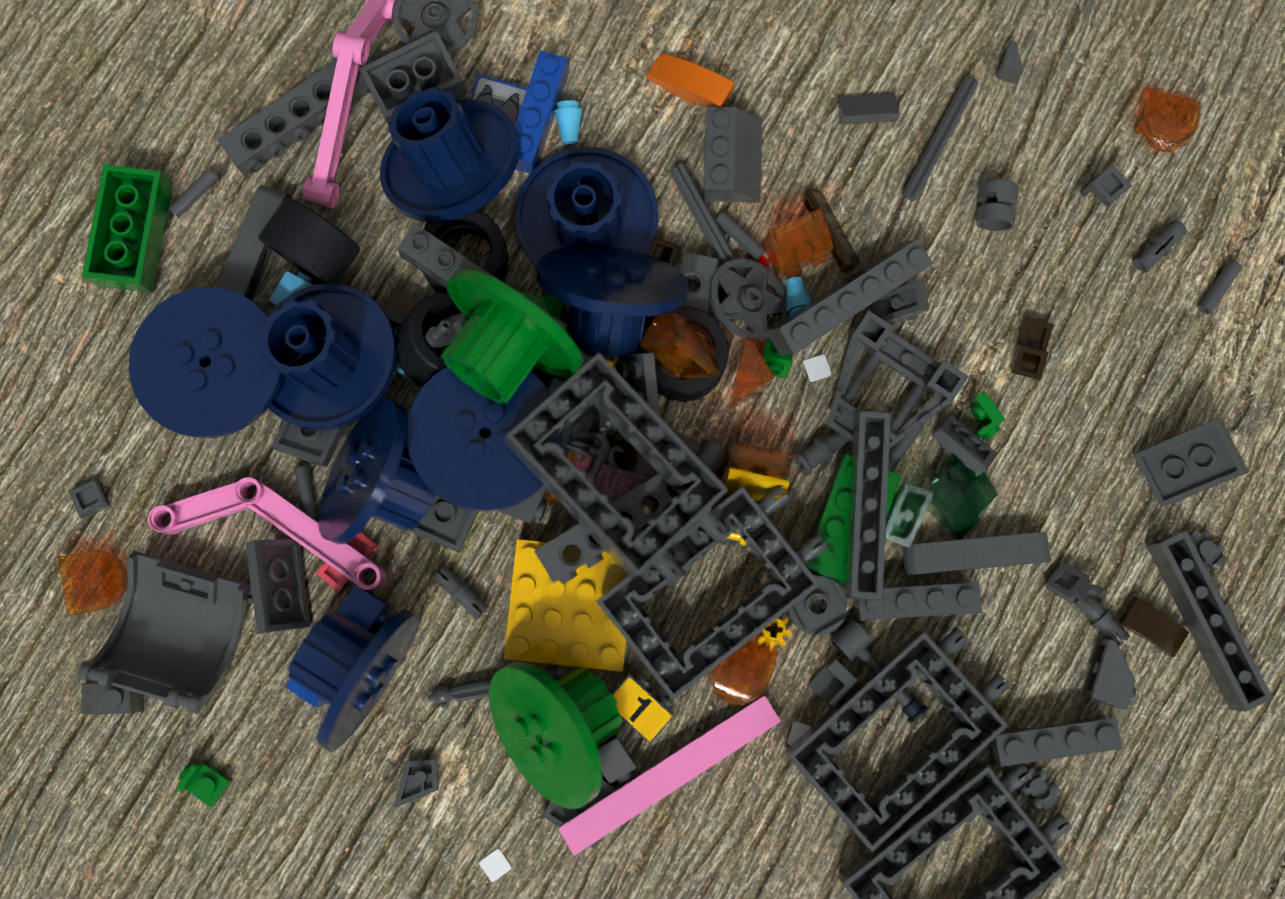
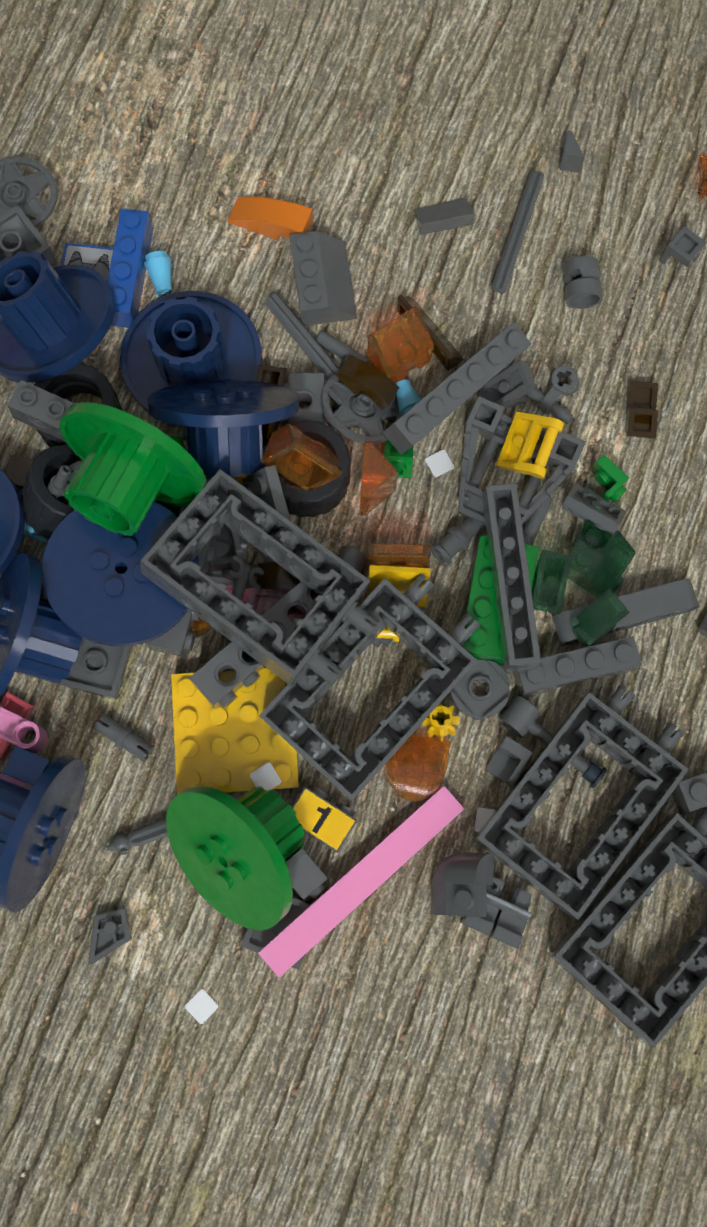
camera: 10 degrees left, 5 degrees down
(592, 657) = (265, 777): none -> white sticker
(757, 270) = (362, 376): none -> dark brown slope
(765, 797) = (461, 884): none -> dark grey brick
(793, 832) = (510, 919): none -> dark grey hips
(904, 364) = (522, 441): none -> yellow plate
(939, 324) = (549, 402): none -> dark grey piece
(948, 561) = (599, 618): none -> clear green slope

